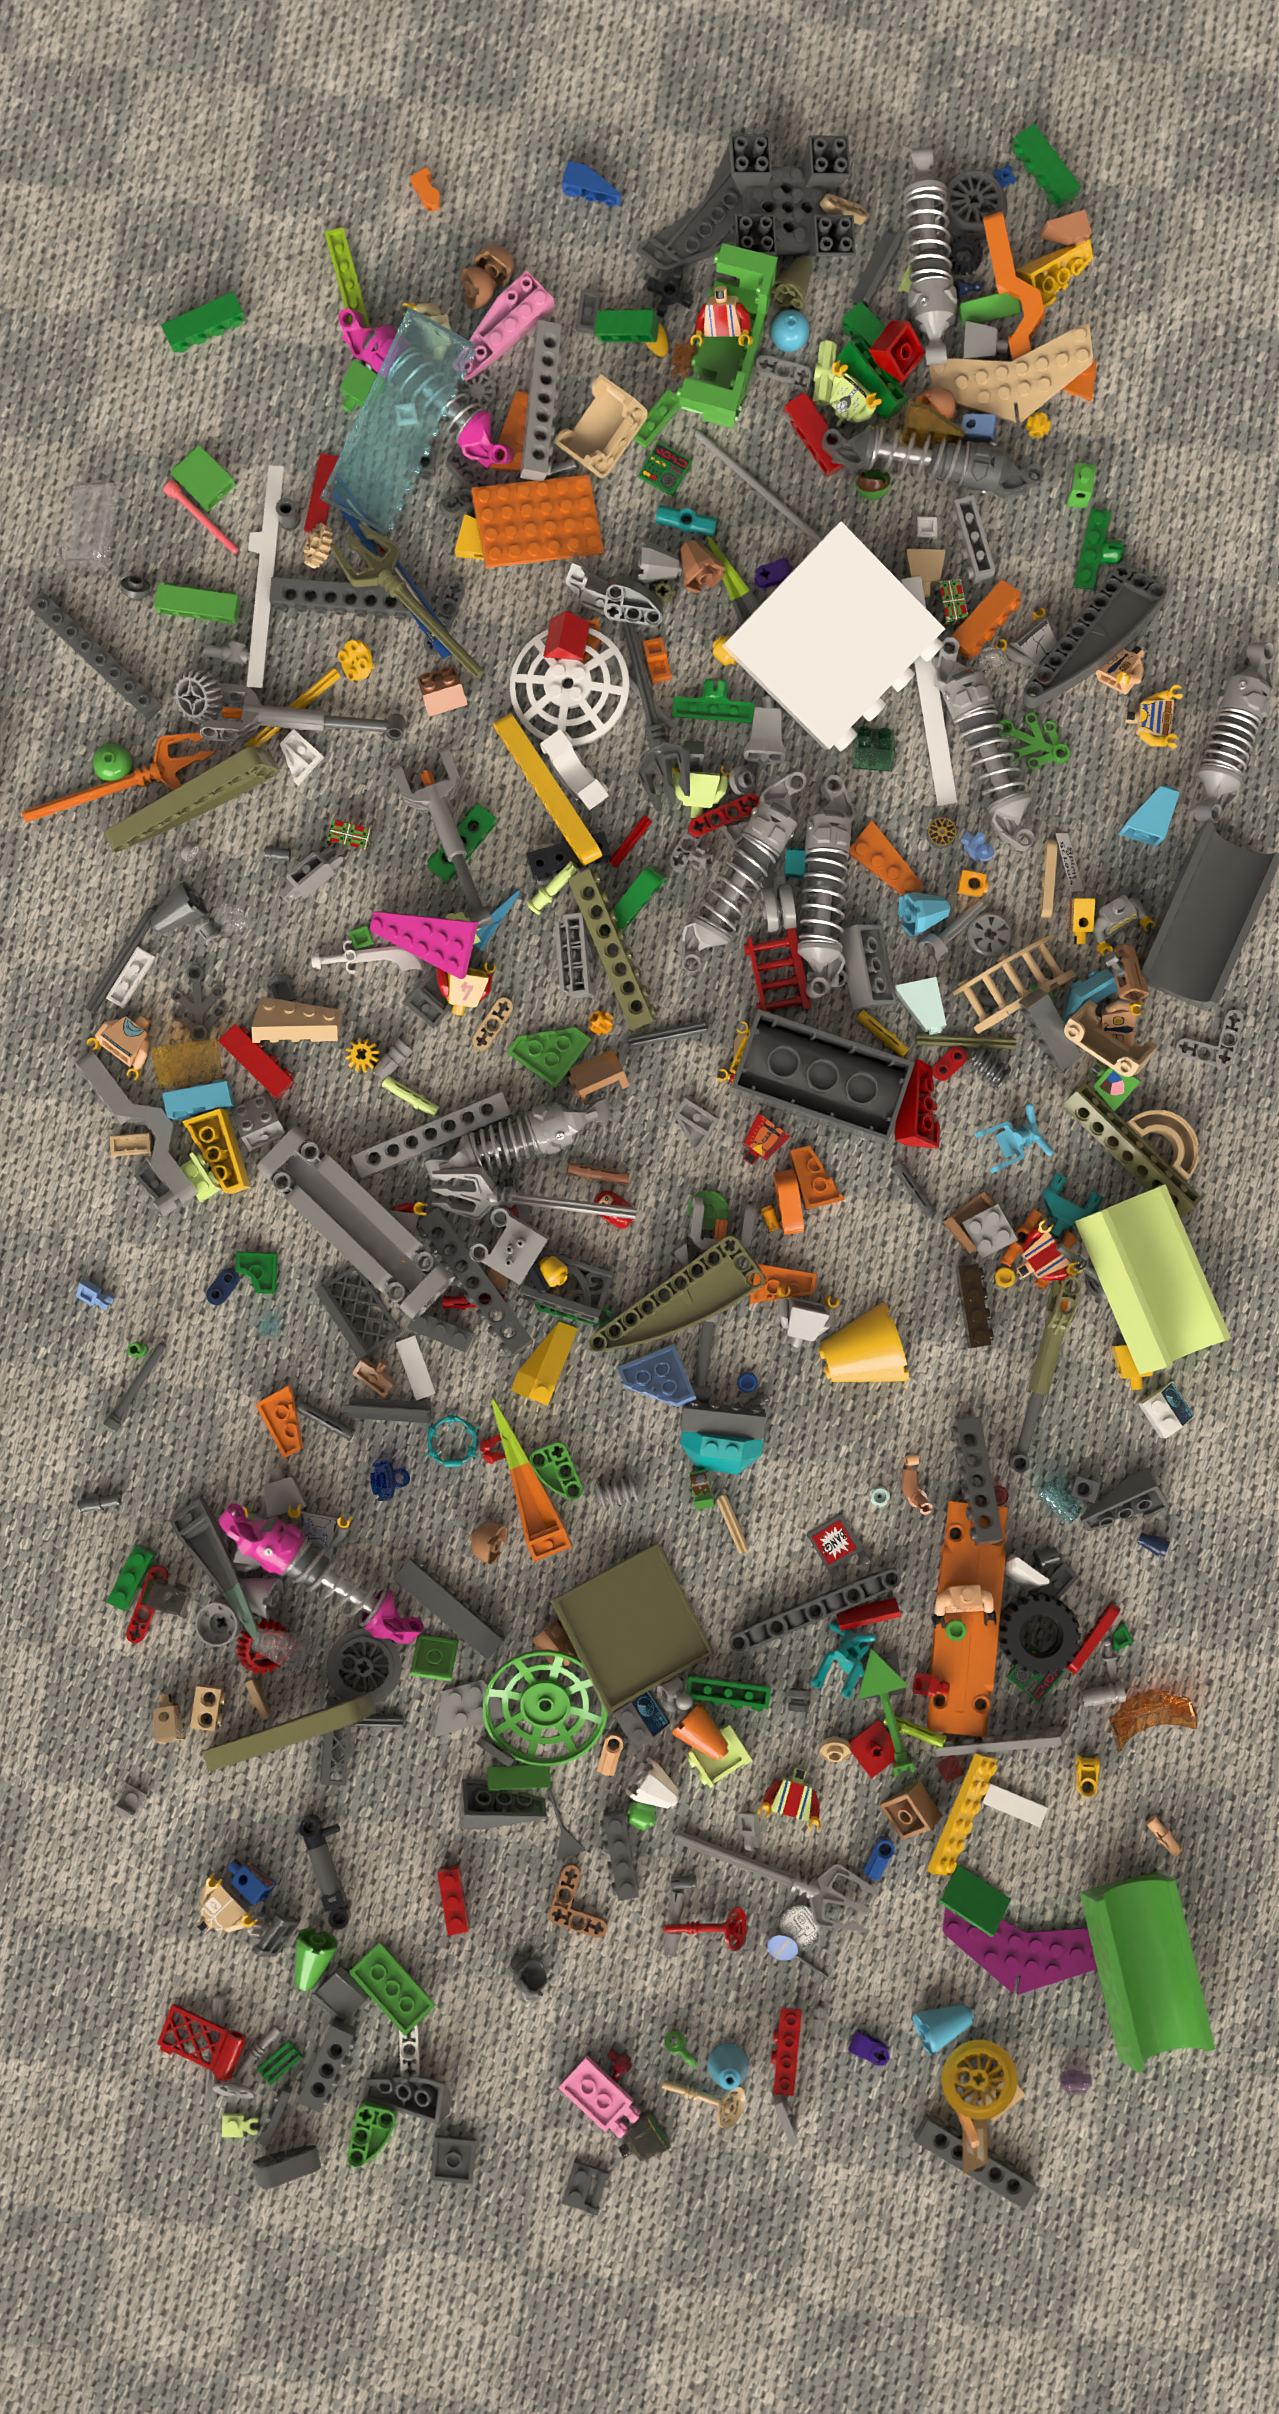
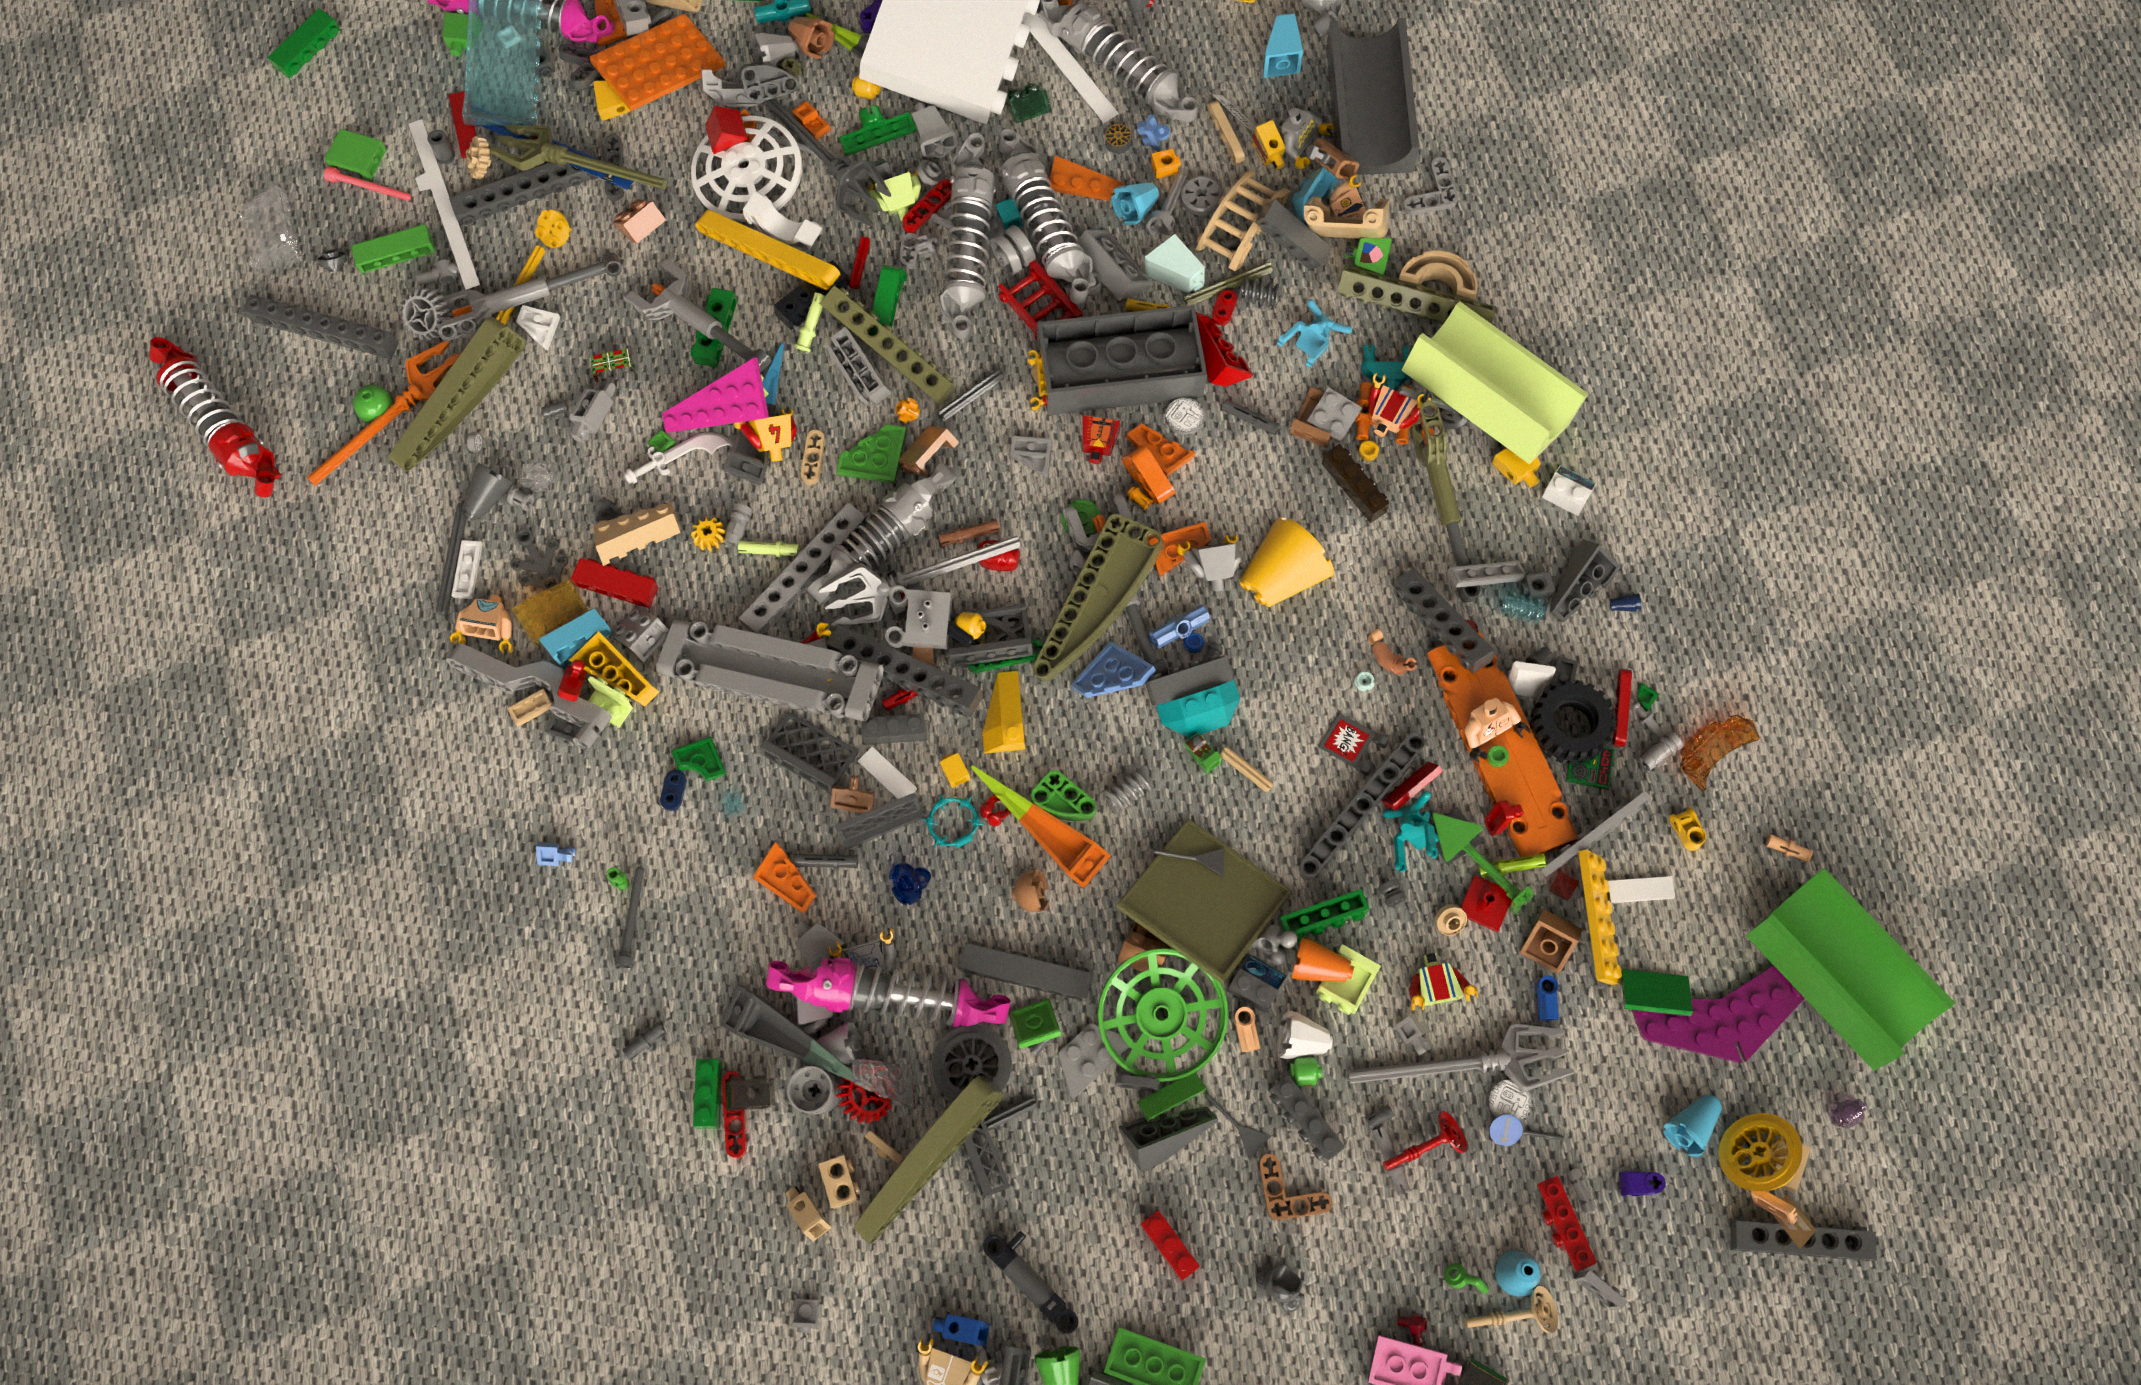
camera: 25 degrees left, 15 degrees down
(175, 1145) = (572, 681): none -> red piece
(475, 1395) = (954, 769): none -> yellow brick
(657, 1593) = (1212, 860): none -> dark grey piece
(741, 1363) = (1170, 631): none -> medium blue piece
(854, 1156) = (1184, 416): none -> tile
(1037, 742) = (1159, 41): bright green plant -> none
(1042, 1456) = (1486, 574): none -> light grey tile

